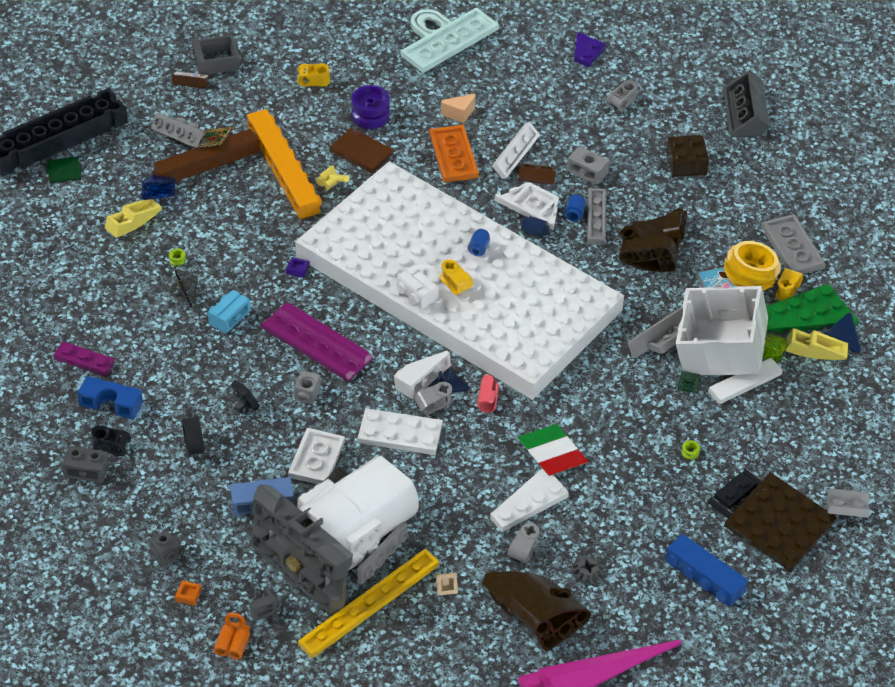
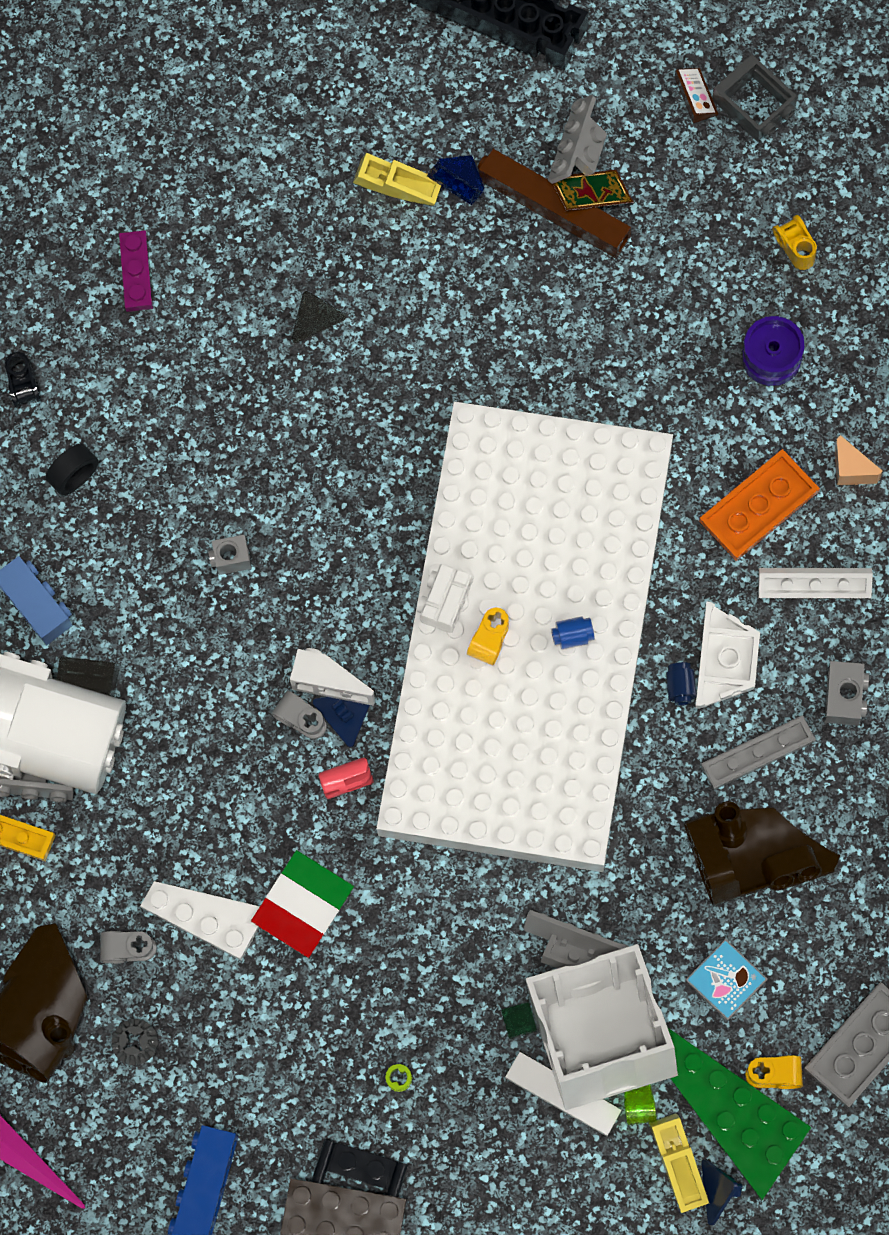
camera: 70 degrees right, 25 degrees up
(64, 169) = (435, 48): dark green piece -> none
(96, 391) = (91, 361): blue arch -> none
(177, 261) = (367, 280): lime bush -> none
(228, 311) = (302, 389): medium azure brick -> none
(245, 397) = (165, 491): black hinge -> none
(284, 165) = (602, 302): light orange brick -> none
(297, 267) = (433, 426): dark purple tile -> none
(316, 456) = (130, 628): white plate -> none
(317, 341) = (316, 522): magenta plate -> none
(330, 178) = (610, 377): light yellow arm -> none
(361, 150) = (695, 384): reddish brown tile -> none
(400, 431) = (229, 703): white plate -> none
(447, 583) = (18, 885): tan slope -> none
(537, 173) = (794, 632): reddish brown slope -> none
(575, 208) = (750, 717): blue brick -> none
(752, 265) = (795, 1007): yellow wheel -> none

